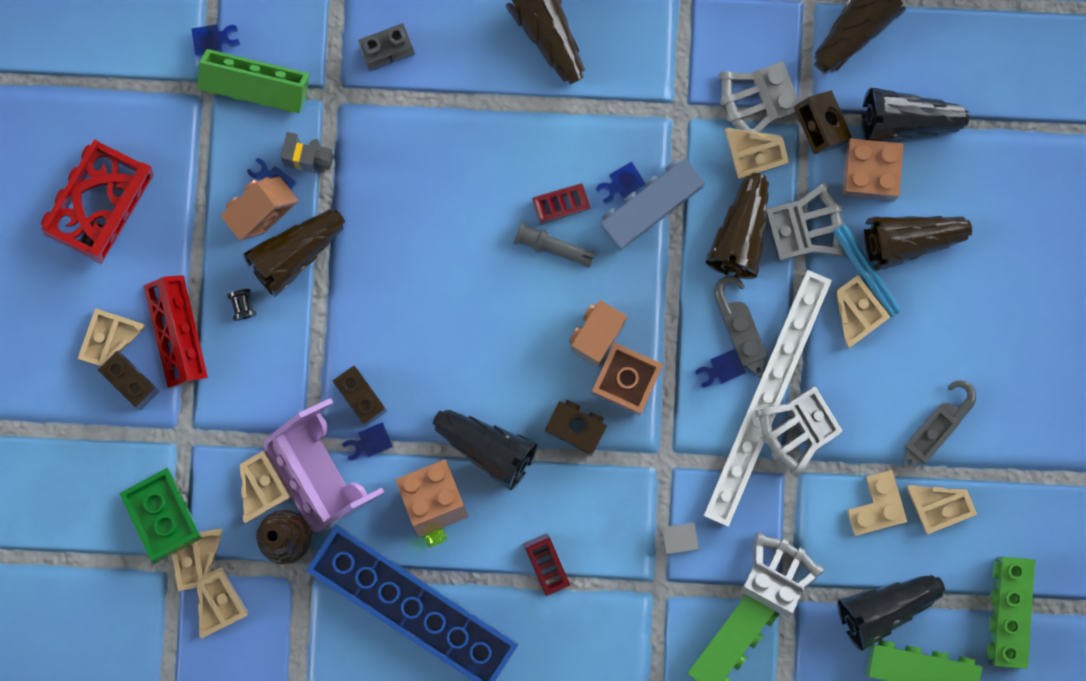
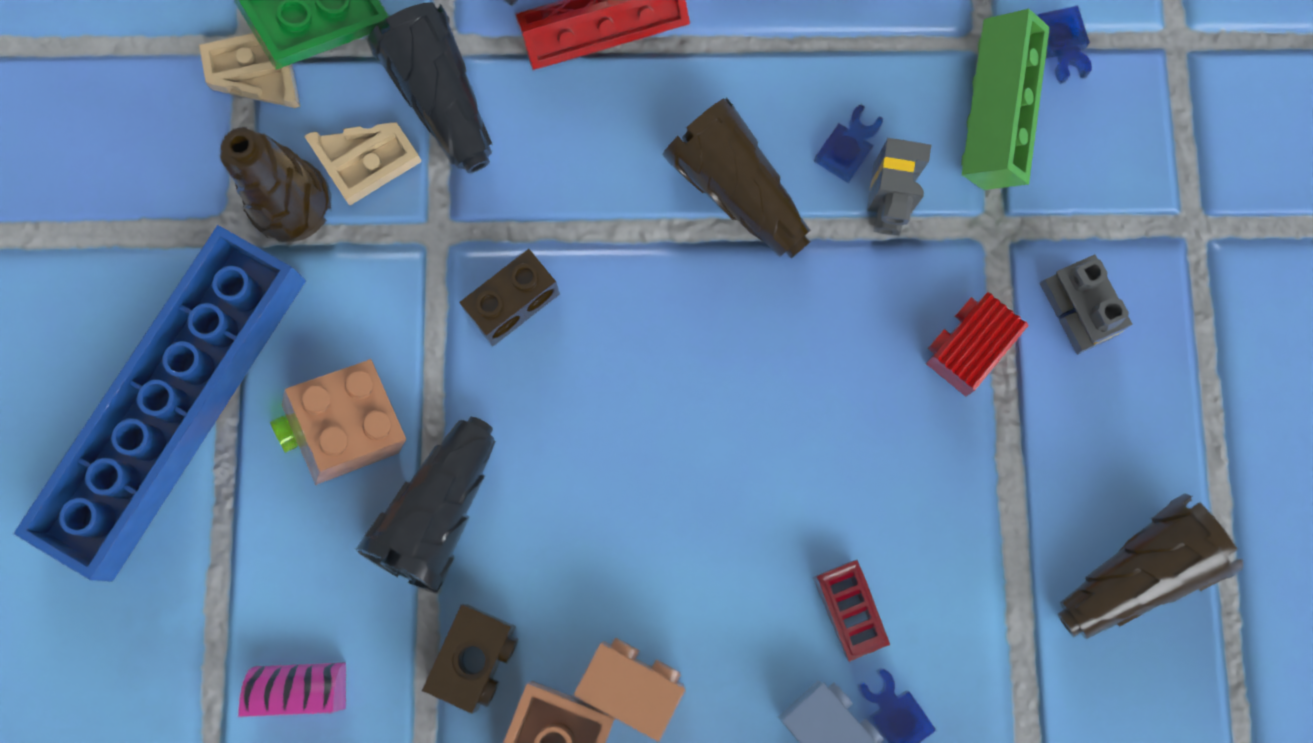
camera: 85 degrees right, 5 degrees down
(215, 438) = (433, 80): none -> black cone
(217, 603) = (180, 104): tan wing -> none
(242, 304) = (648, 110): black bush -> none
(258, 207) = (802, 116): nougat brick -> none
(311, 473) = (383, 236): lavender windscreen -> none
(373, 441) = (441, 323): clear blue plate -> none
(406, 115) = (976, 344): none -> red brick
(535, 544) = (270, 607): dark red slope -> none
(541, 241) = (785, 580): dark grey pin -> none
(588, 531) = (293, 689): none -> dark pink brick

